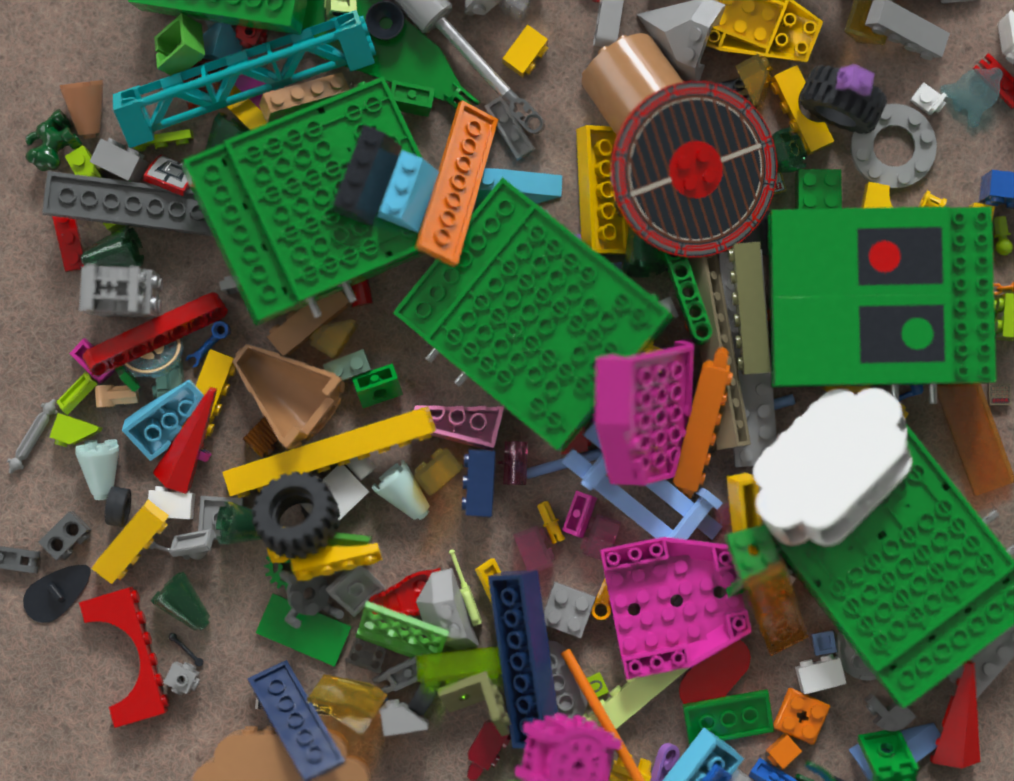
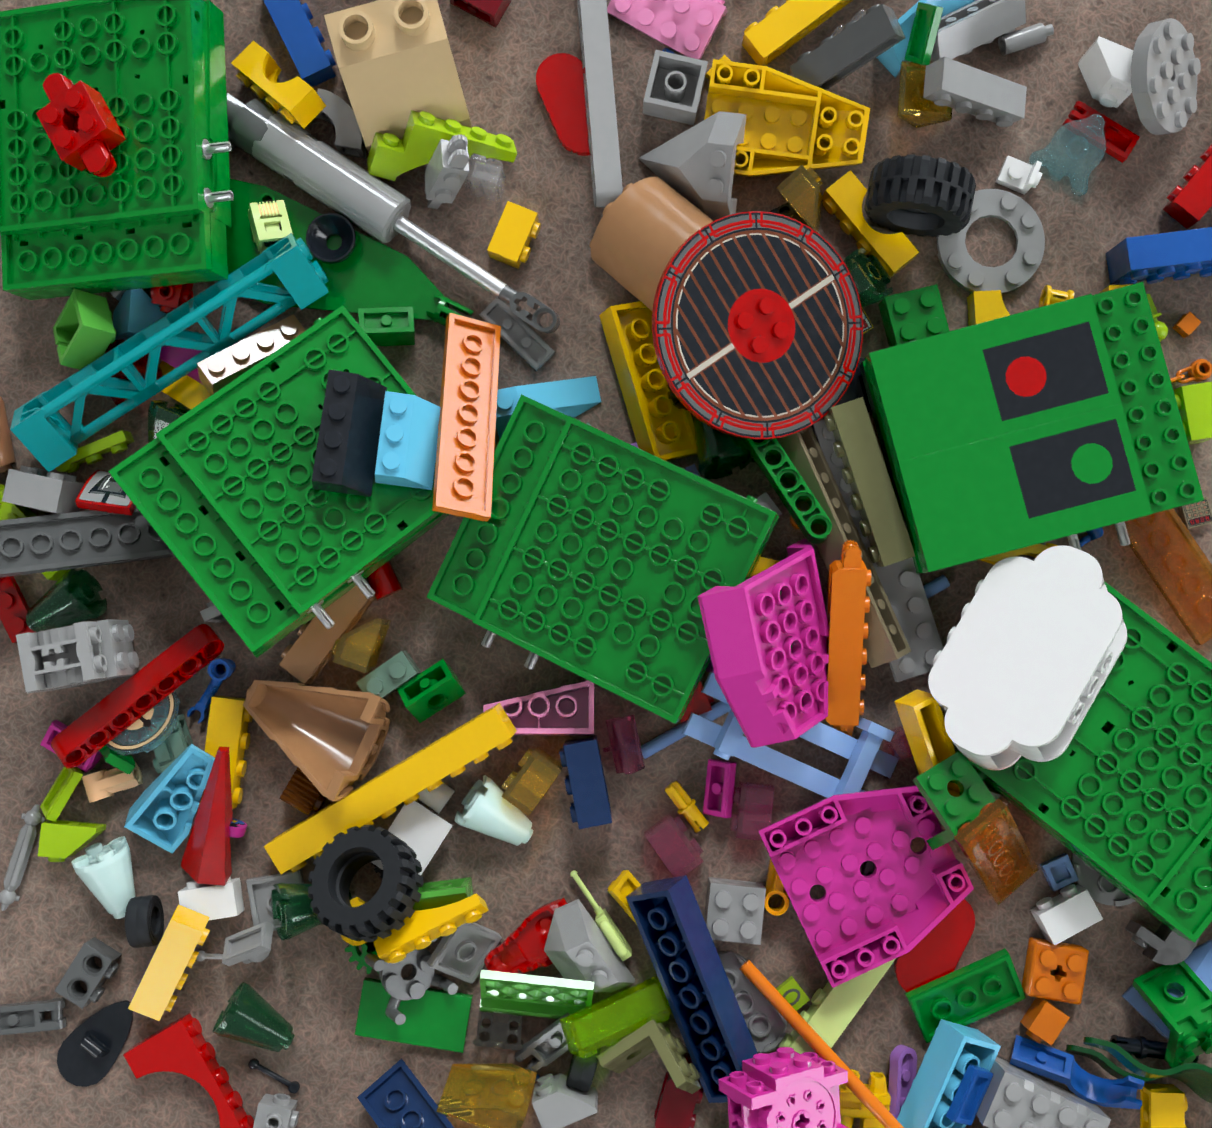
camera: 10 degrees left, 0 degrees up
(855, 79) = (935, 161): medium lavender bracket -> none

